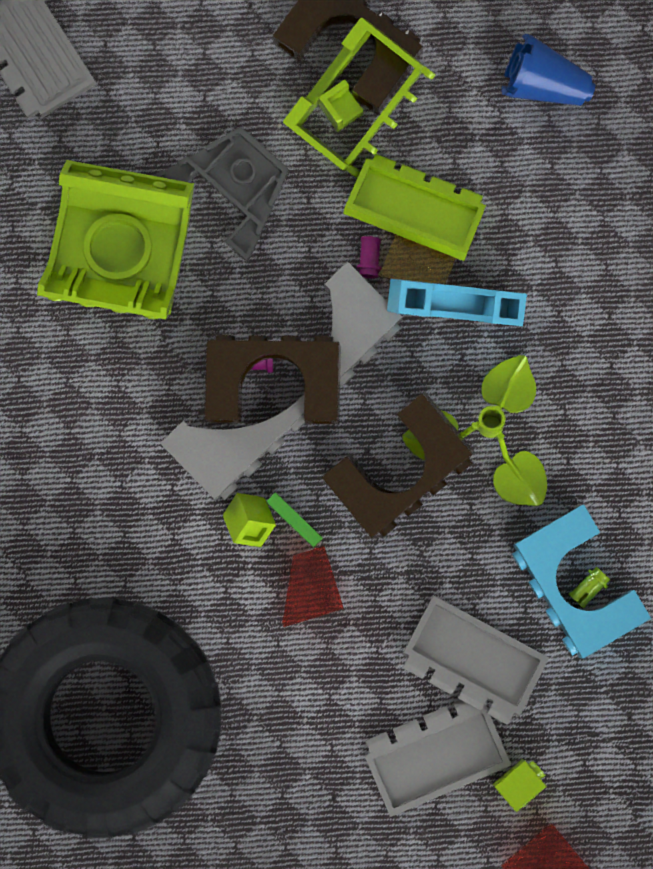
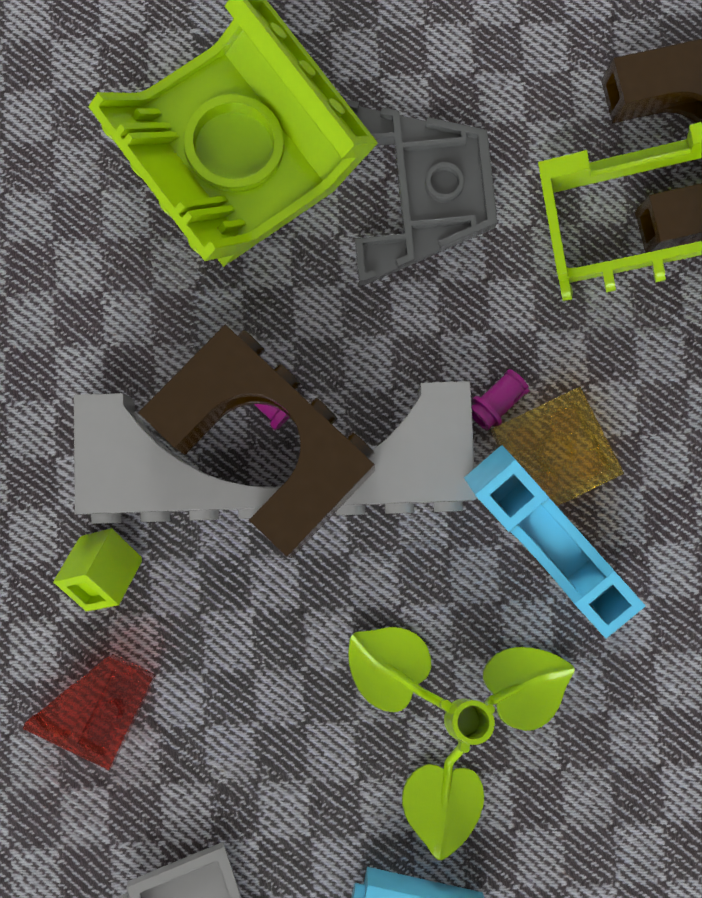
camera: 40 degrees right, 0 degrees up
(294, 520) = (147, 618): bright green tile -> none
(340, 106) = (616, 203): lime panel -> none
(415, 208) = (600, 392): lime hinge -> none
(444, 453) = (253, 693): dark brown arch -> none

